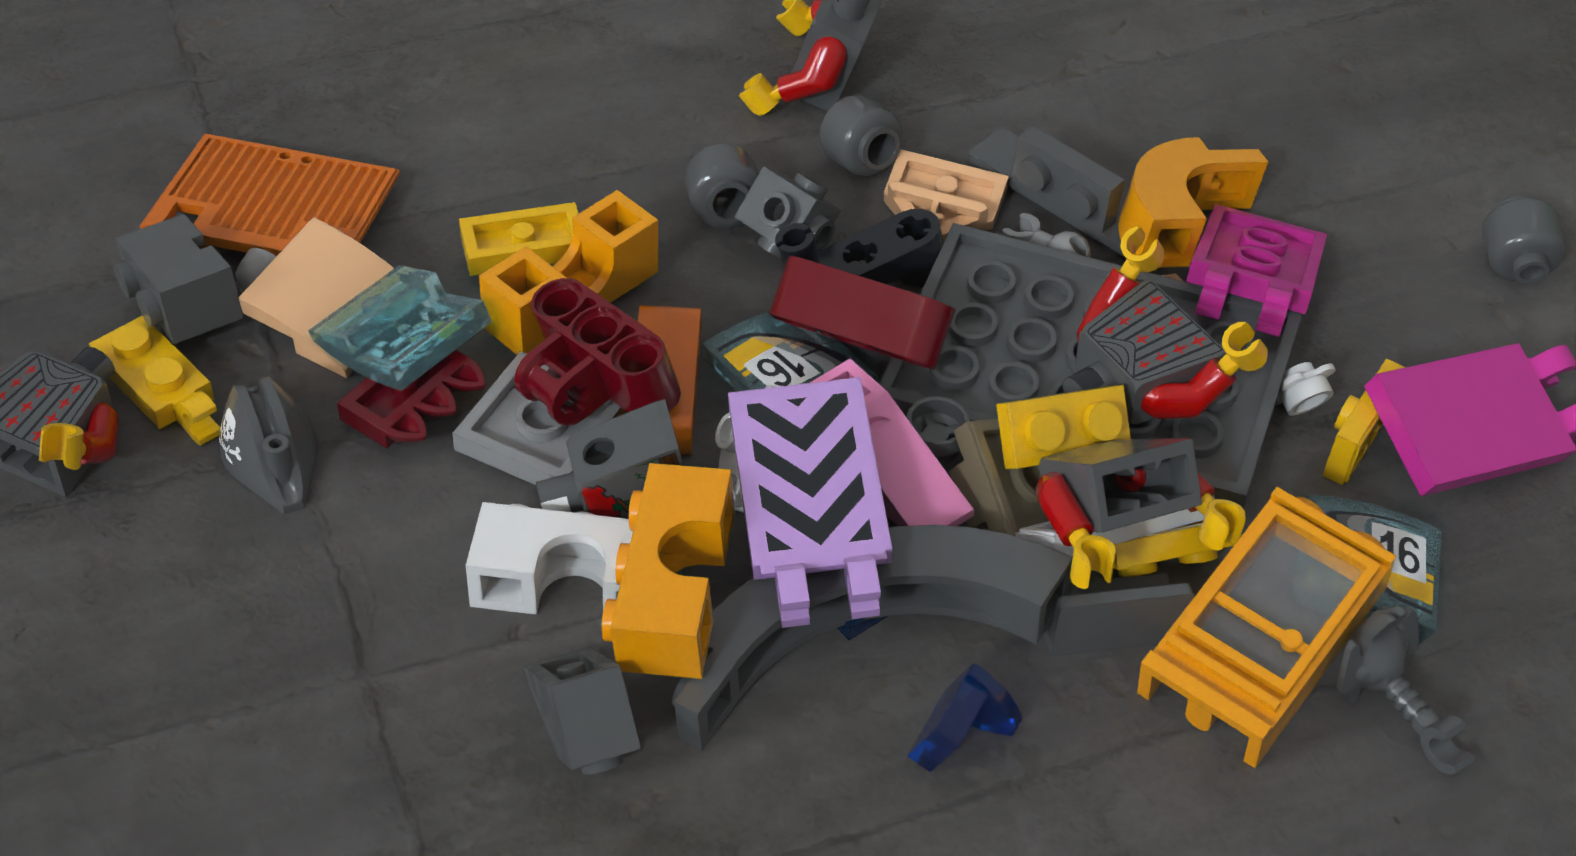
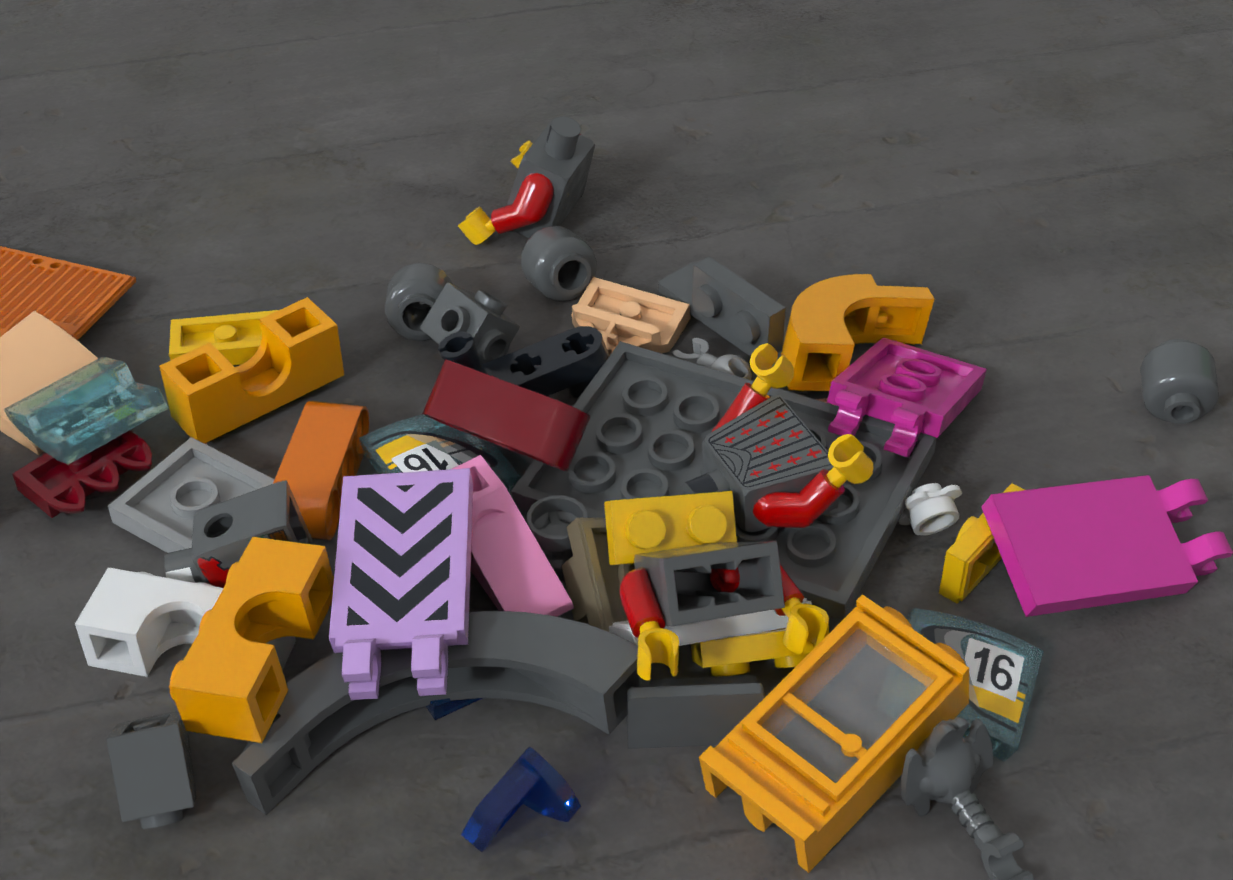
camera: 10 degrees right, 5 degrees down
(592, 356) = (241, 443): dark red piece -> none

